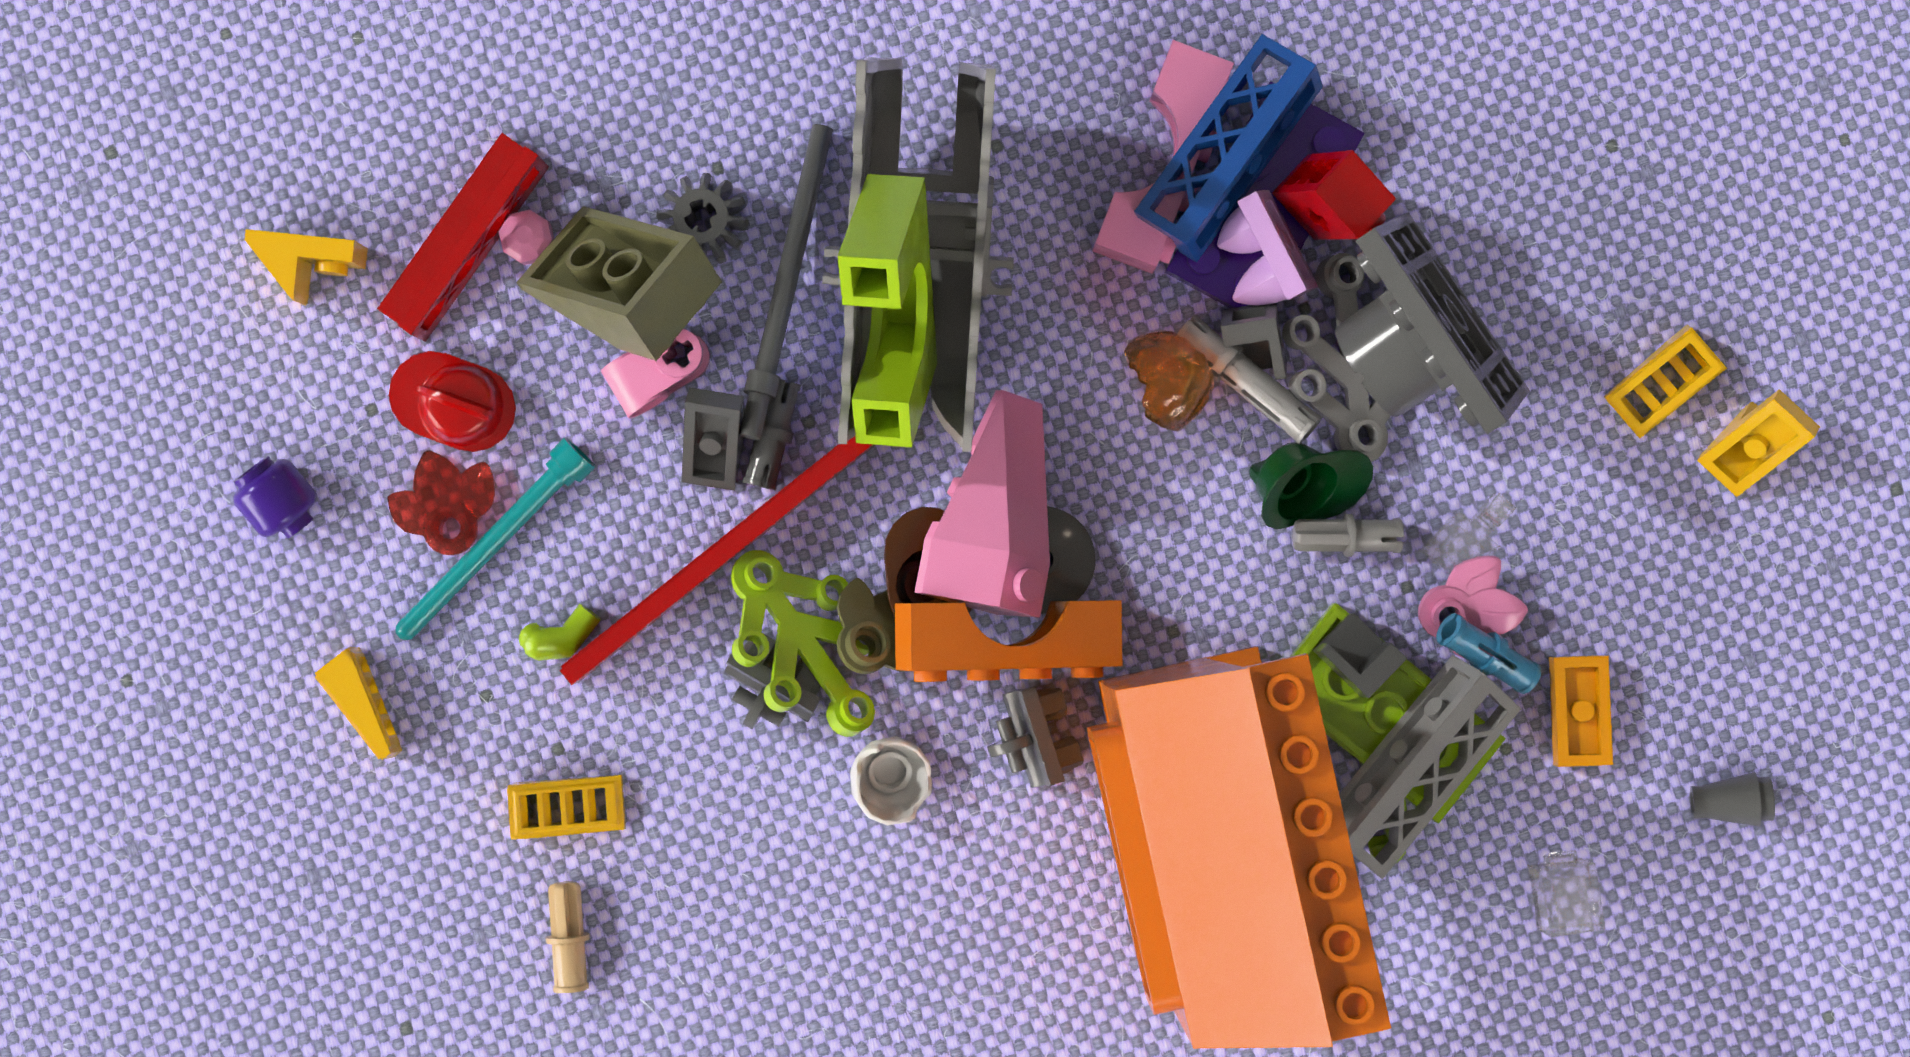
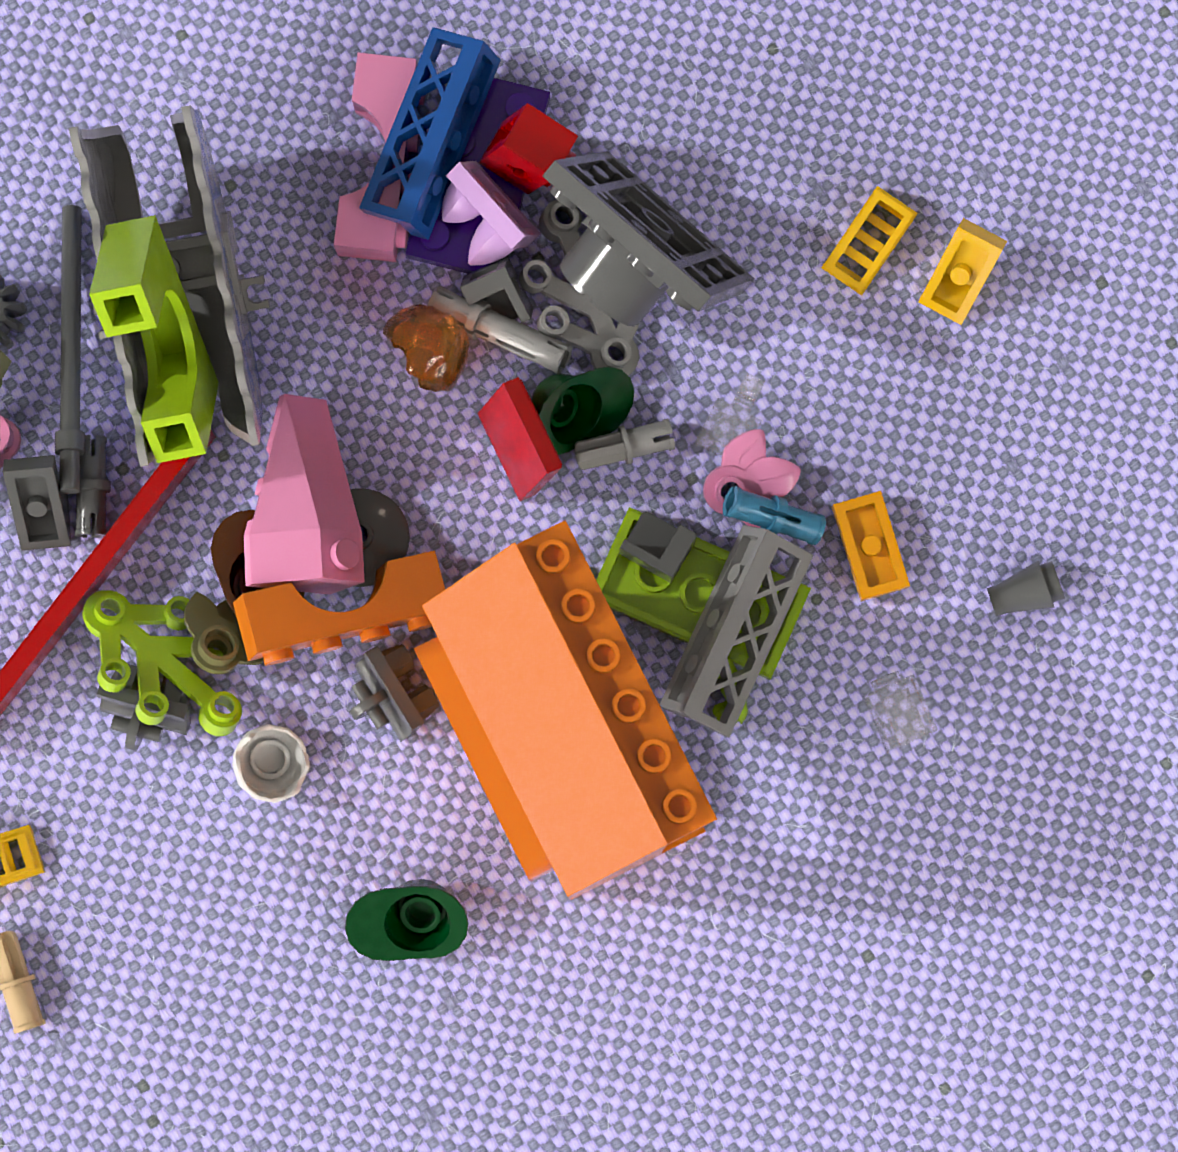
camera: 15 degrees left, 5 degrees down
(995, 985) = (407, 922): none -> dark green piece
(1242, 504) = (520, 439): none -> red tile

